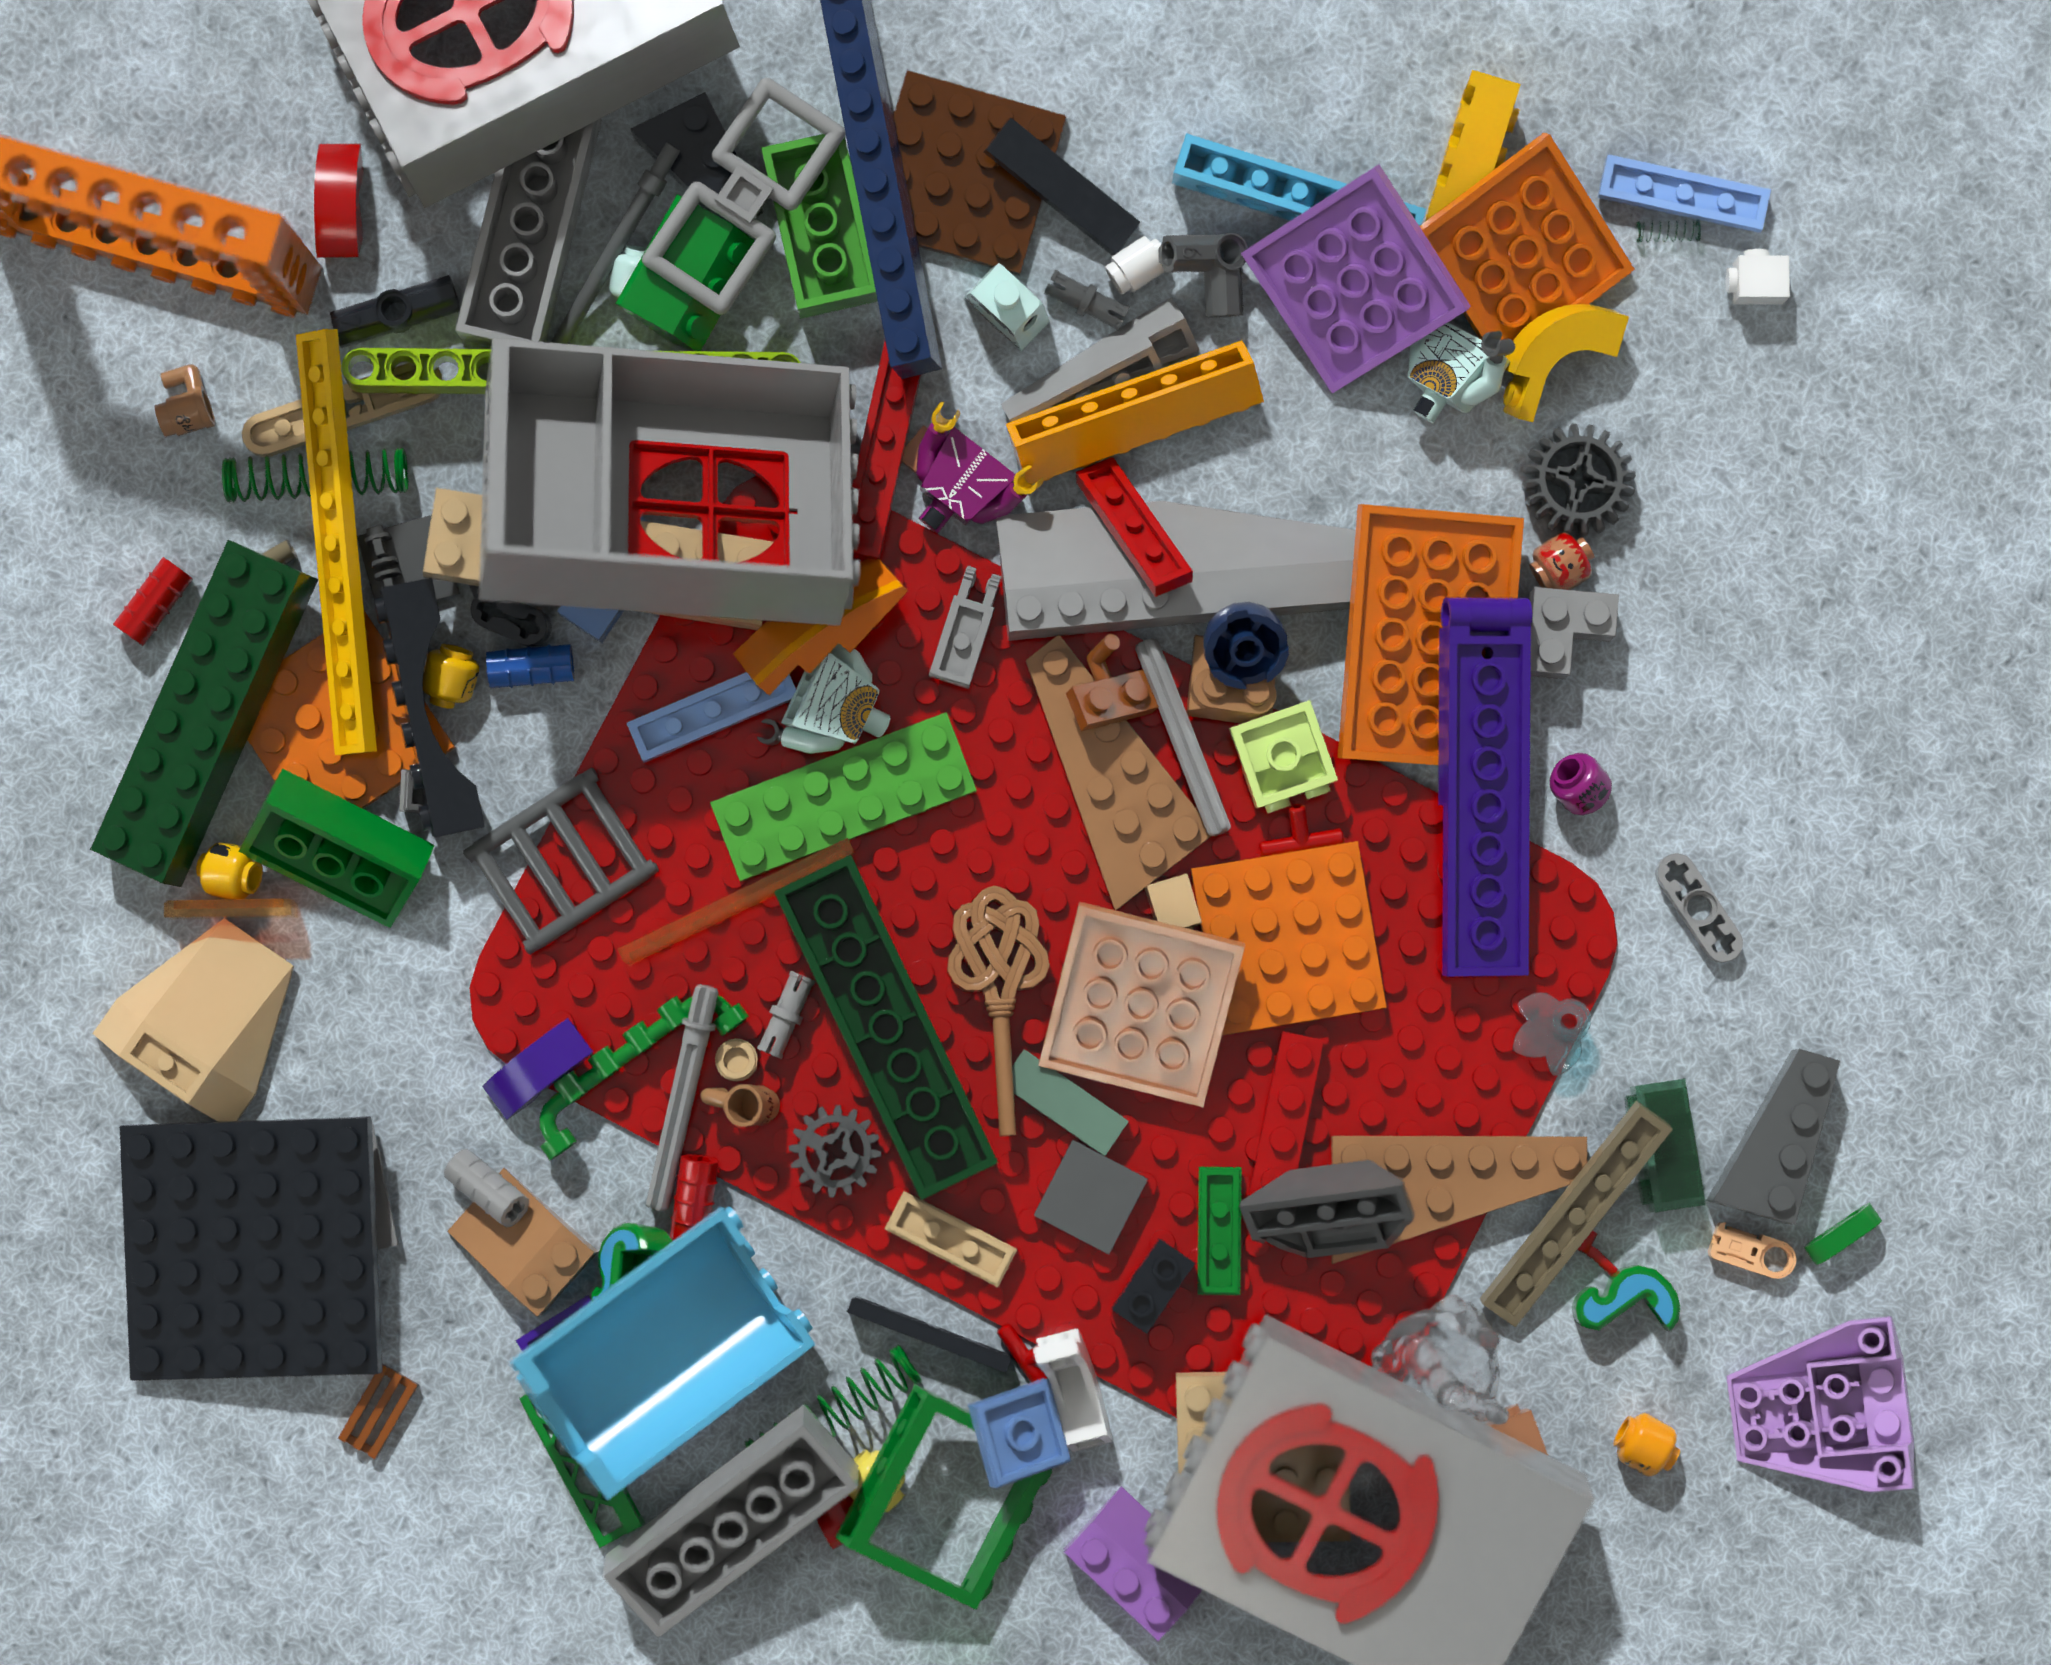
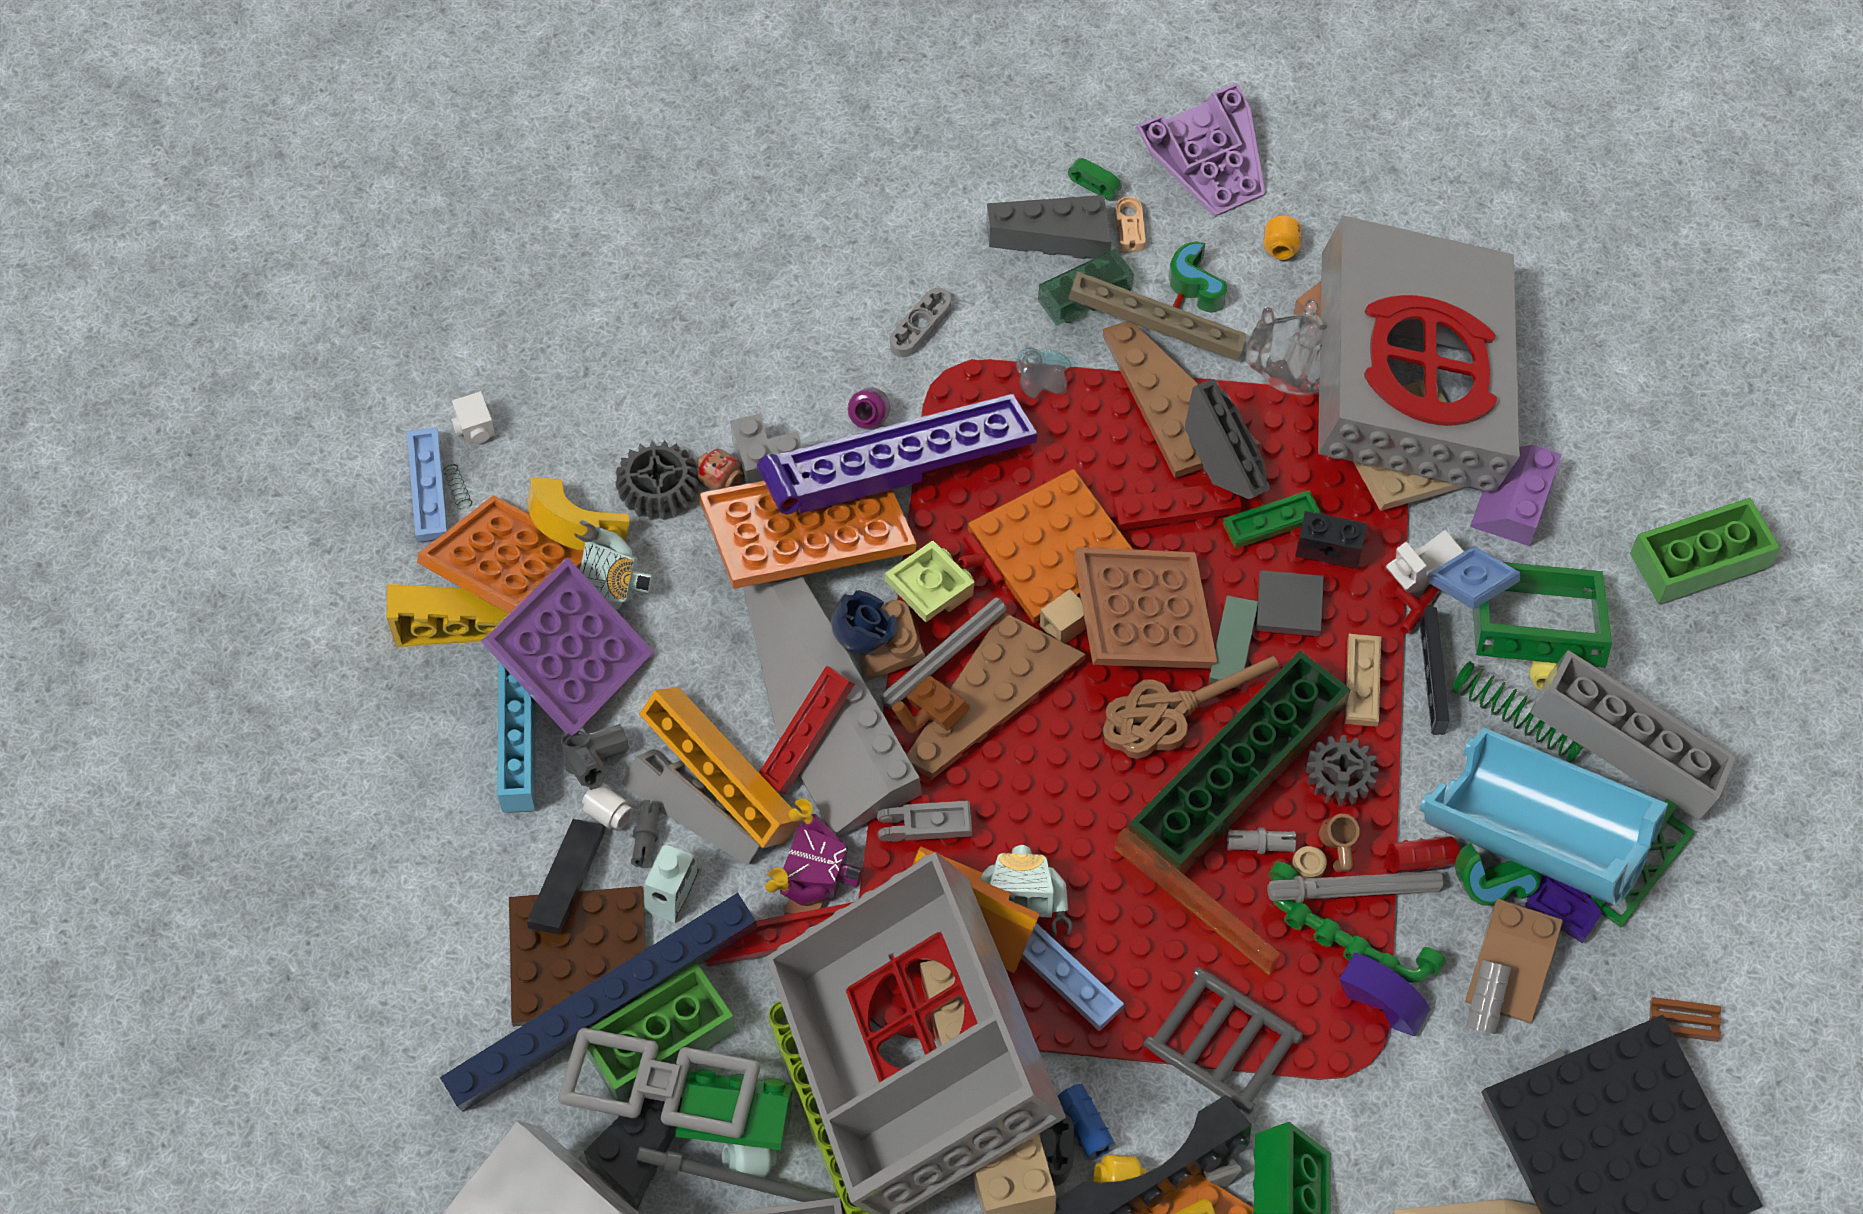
camera: 110 degrees left, 25 degrees down
(843, 796) = (1087, 861): bright green plate -> none

